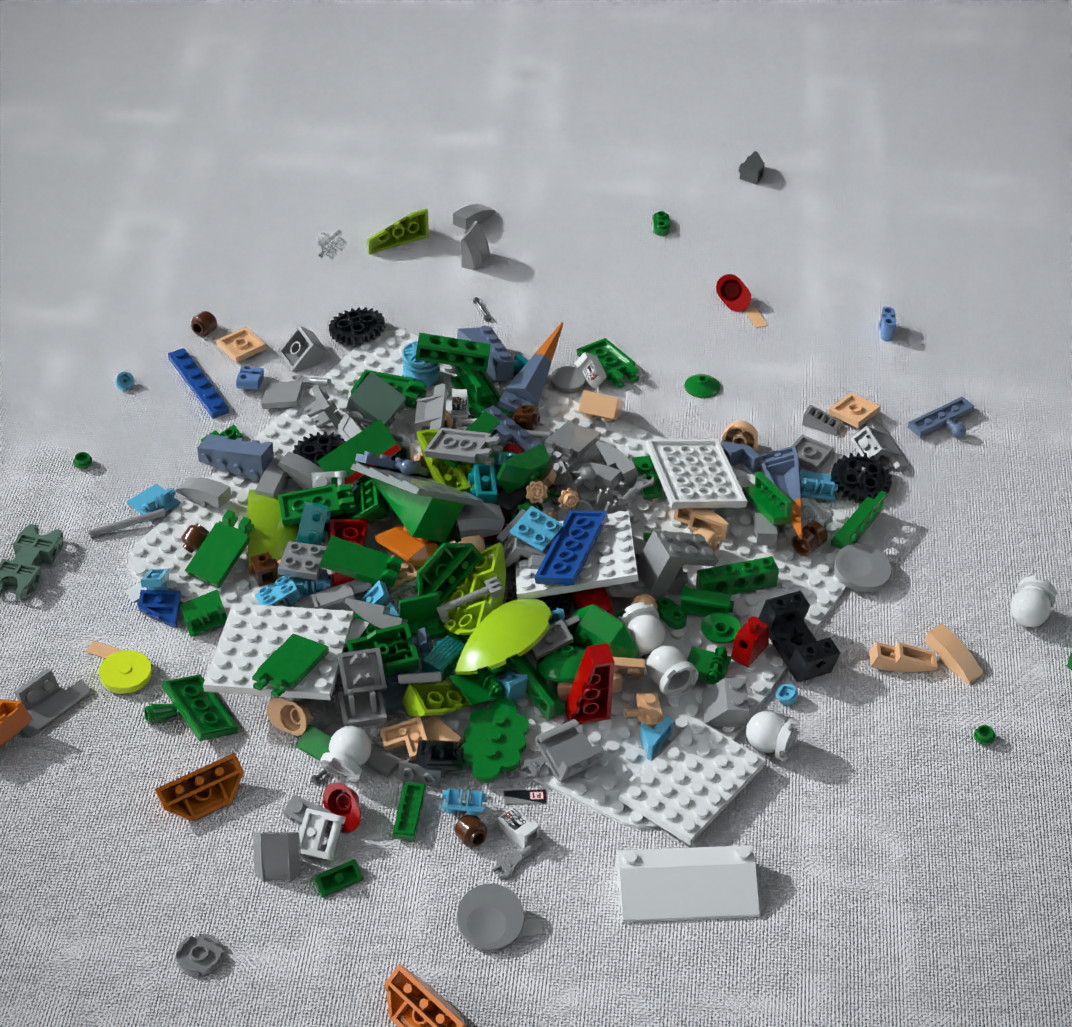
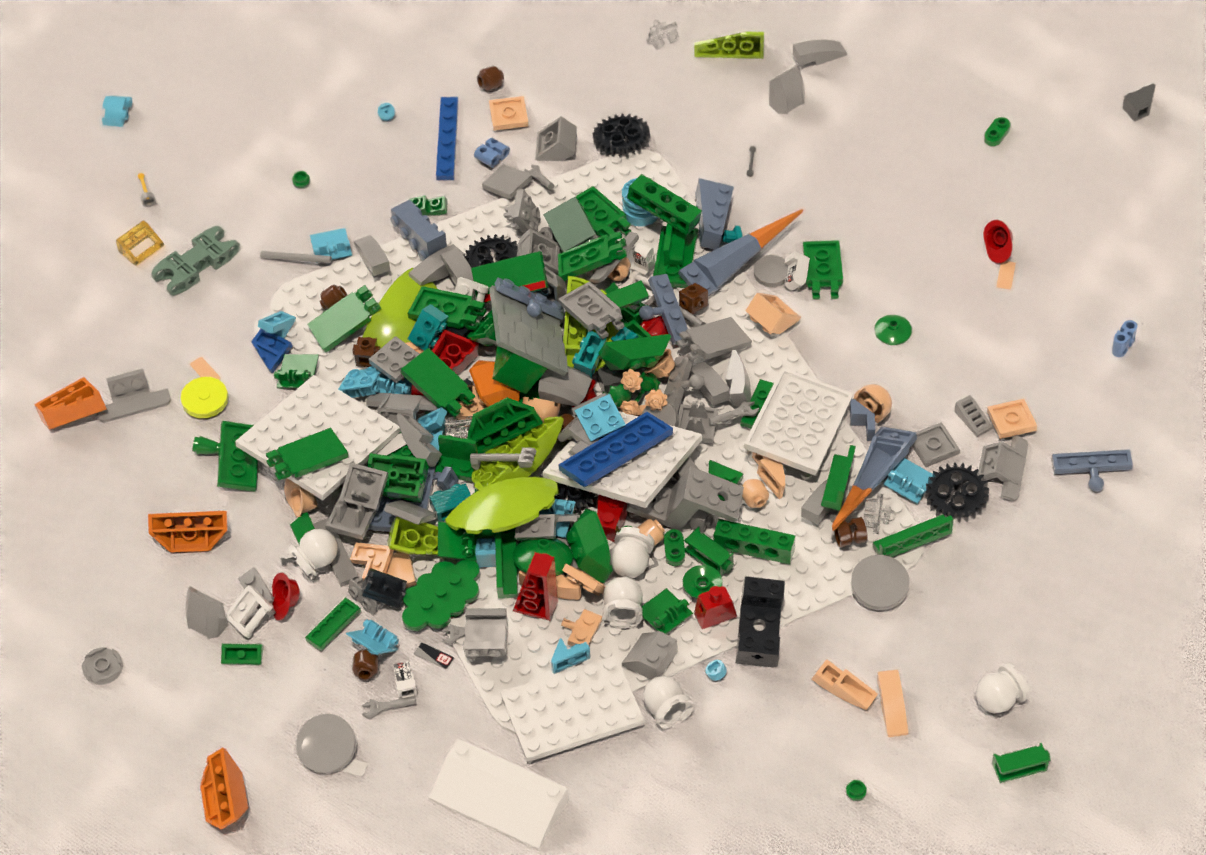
camera: 35 degrees right, 10 degrees up
(418, 412) = (591, 255): none -> green tile

